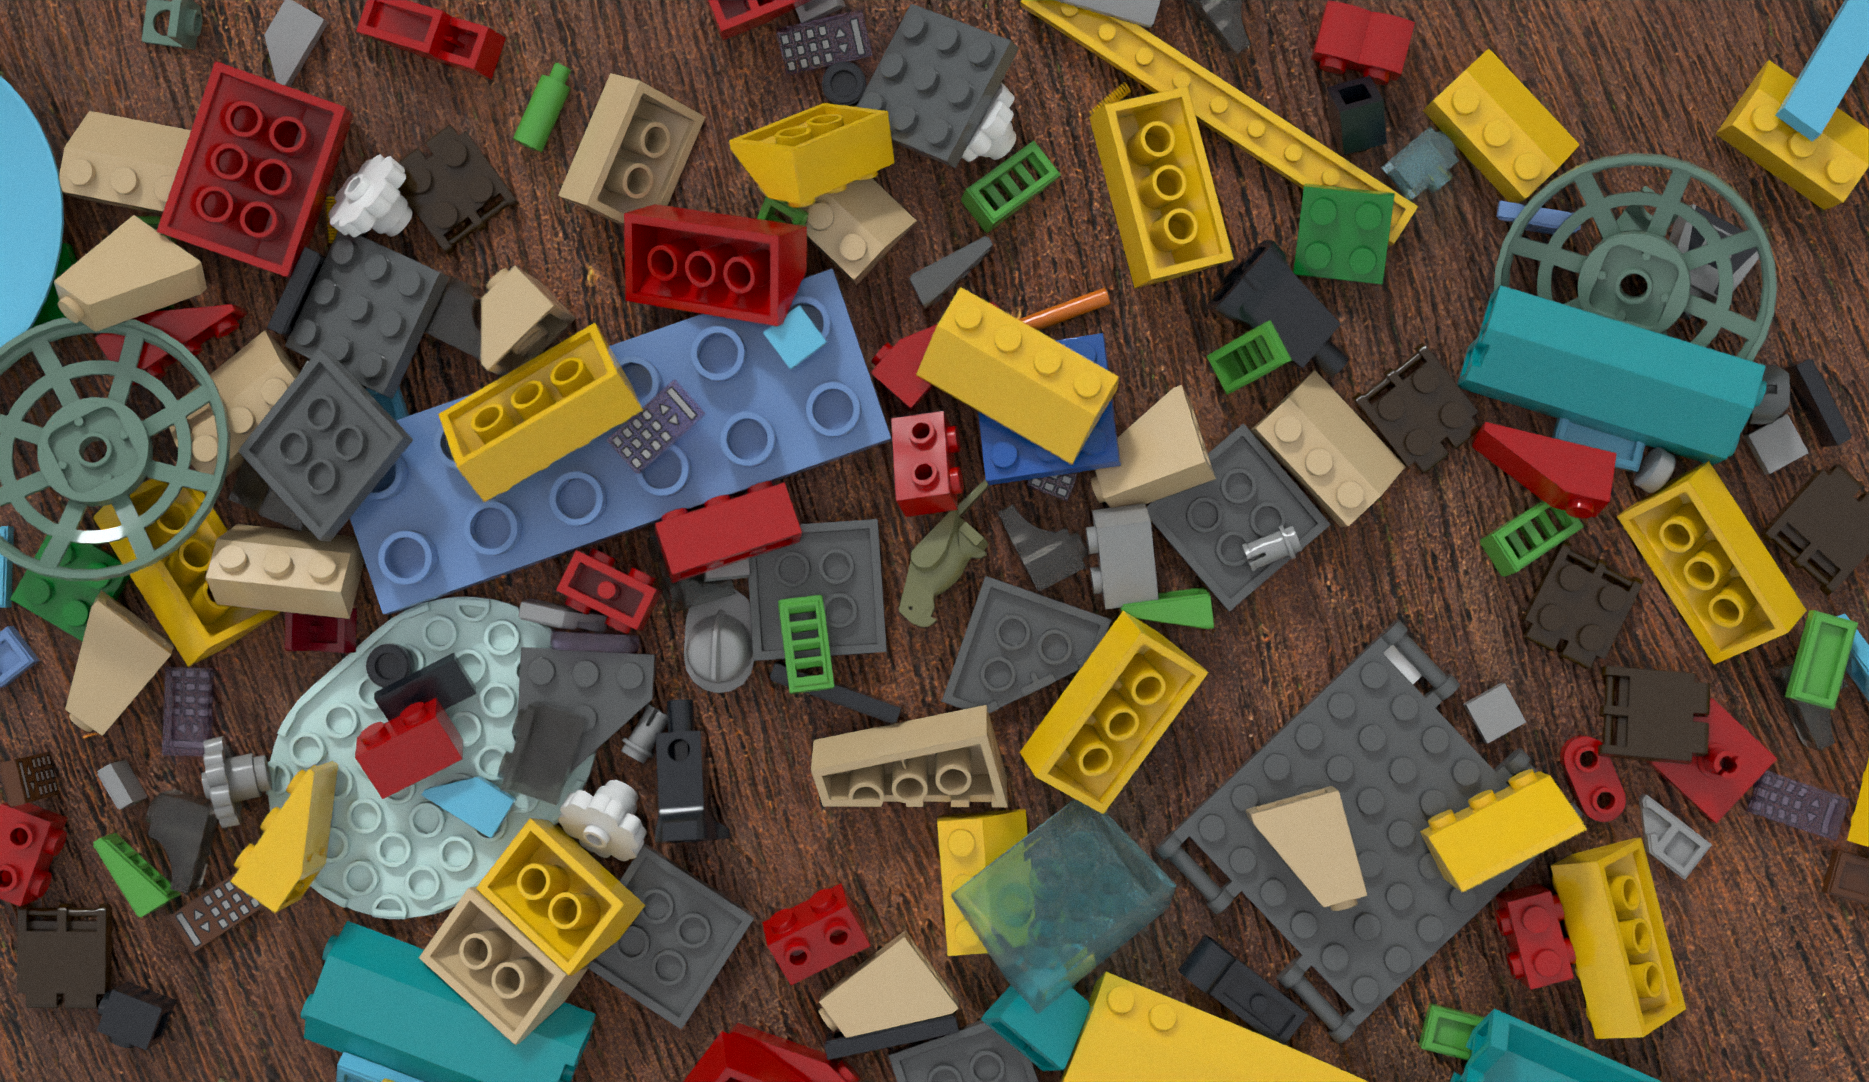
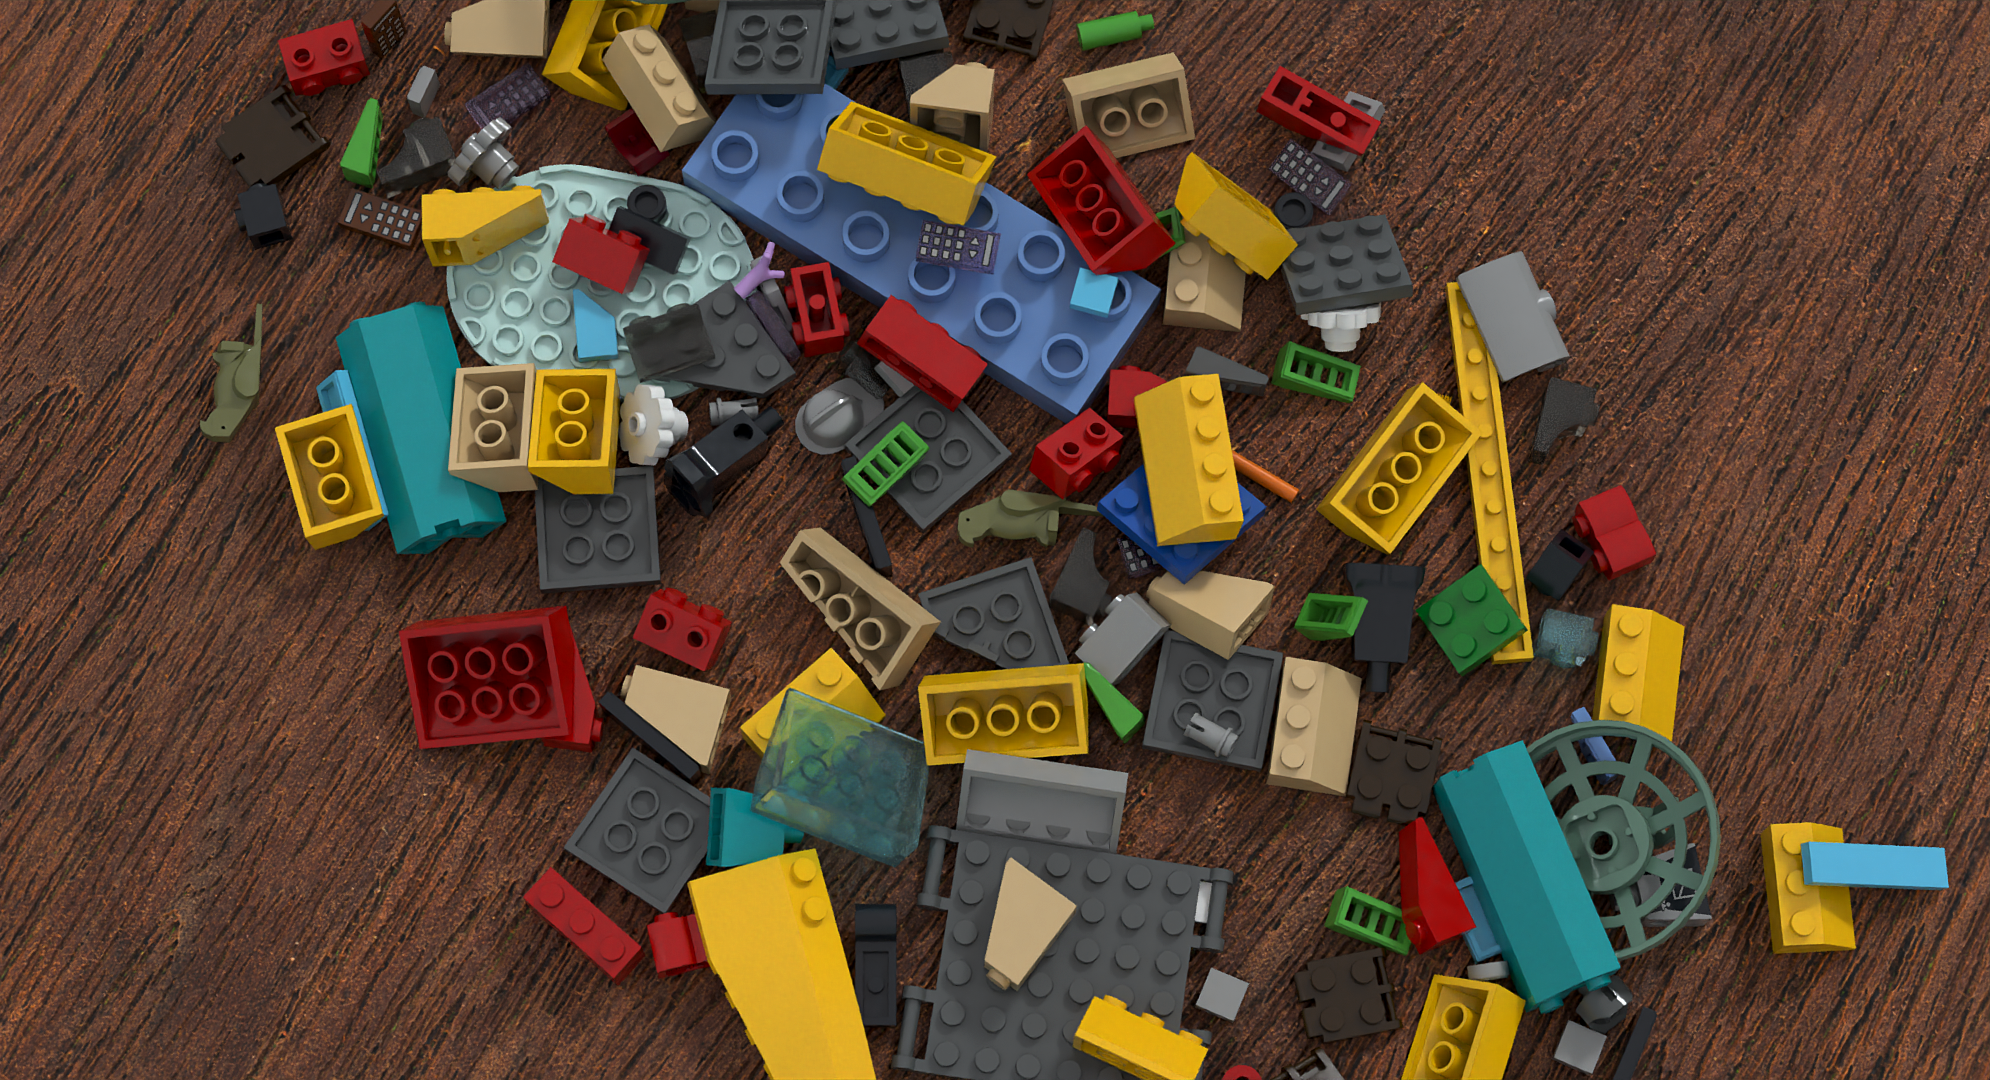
camera: 50 degrees right, 15 degrees down
(537, 619) = (758, 273): none -> lavender bar
(1212, 739) = (1041, 801): none -> light grey slope

